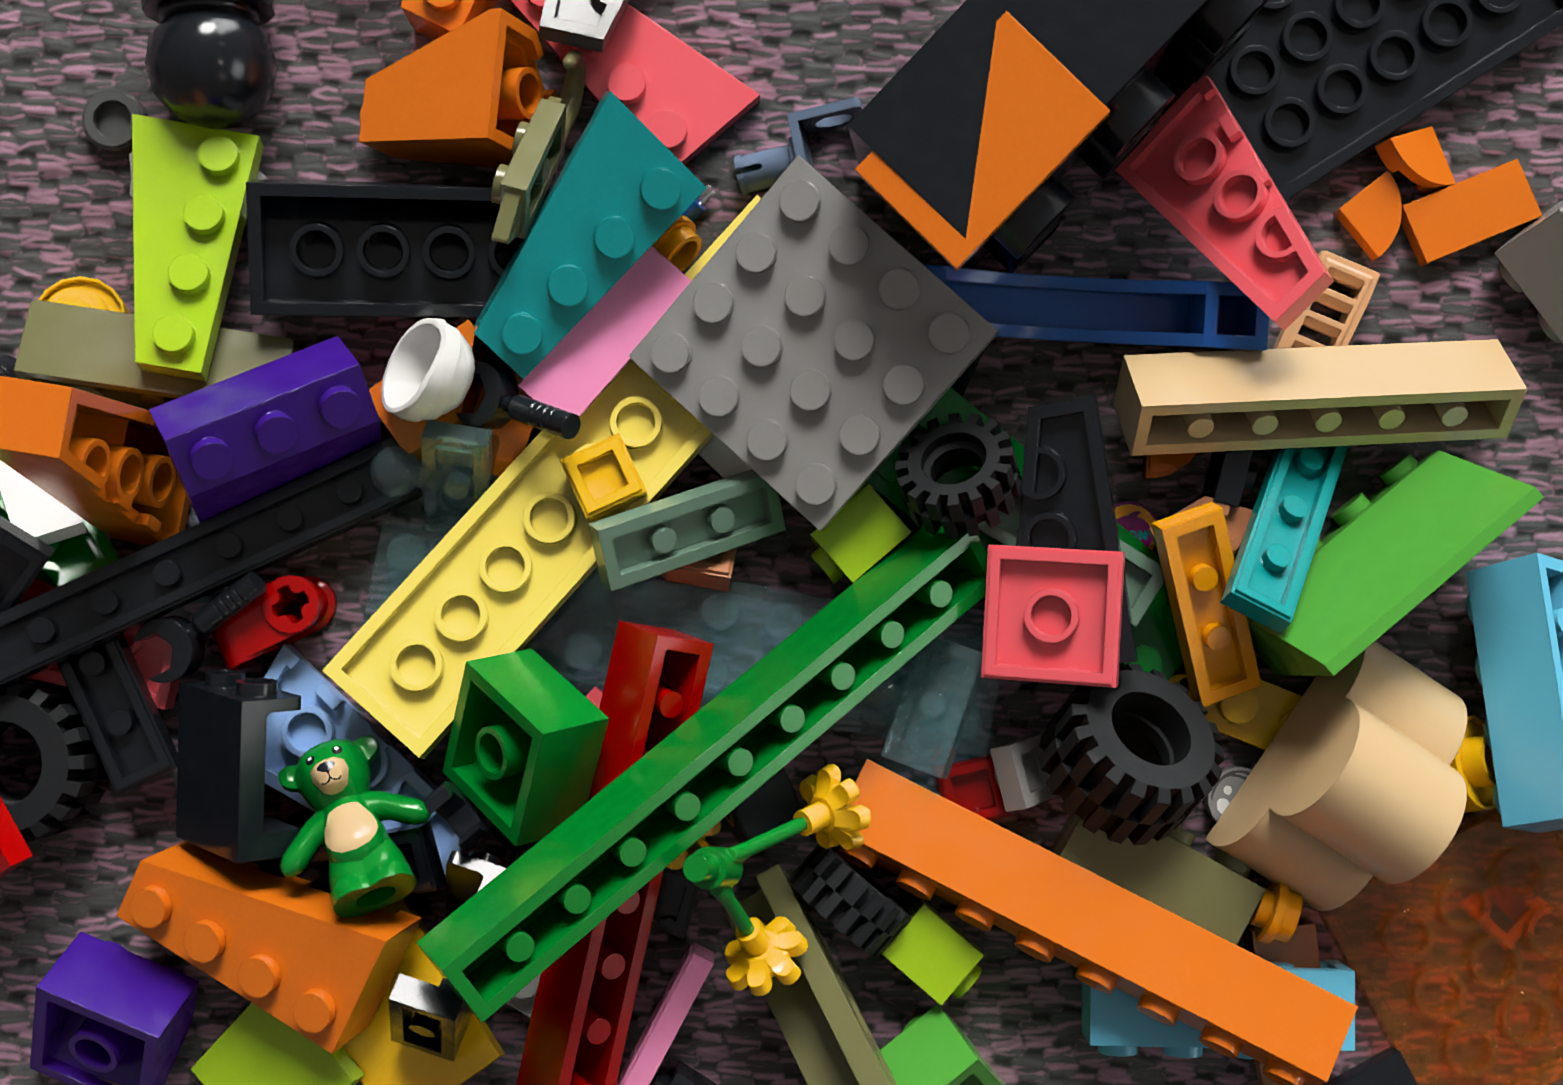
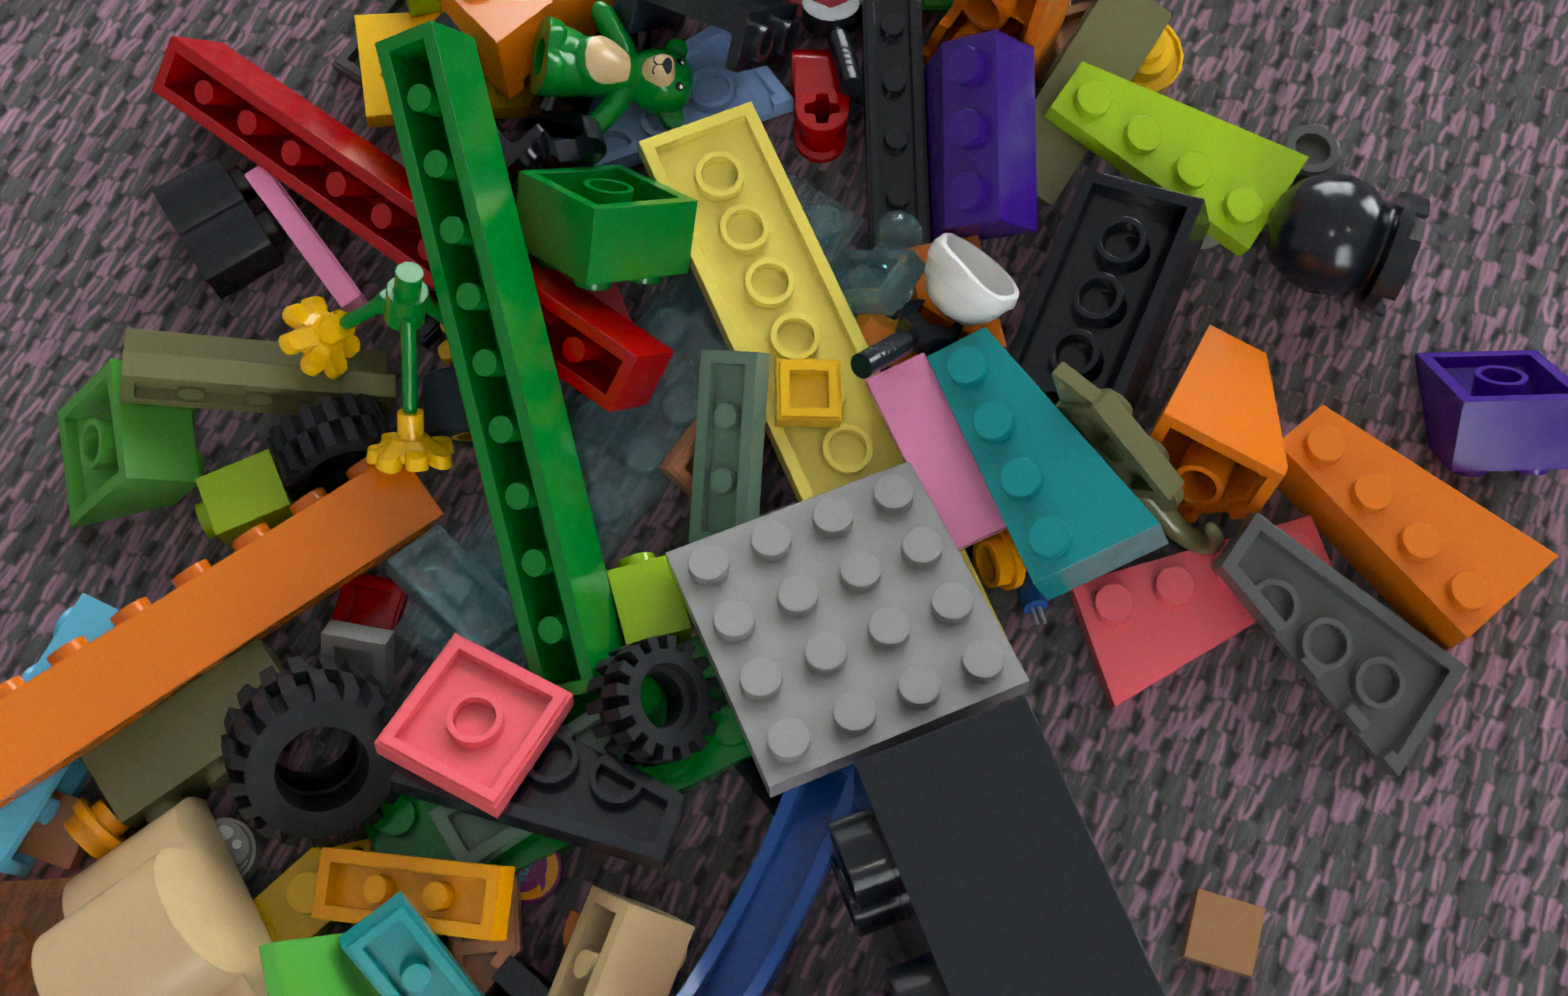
camera: 115 degrees right, 15 degrees down
(764, 167) = (1055, 721): sand blue bracket -> none
(1029, 127) = (943, 871): orange tile -> none

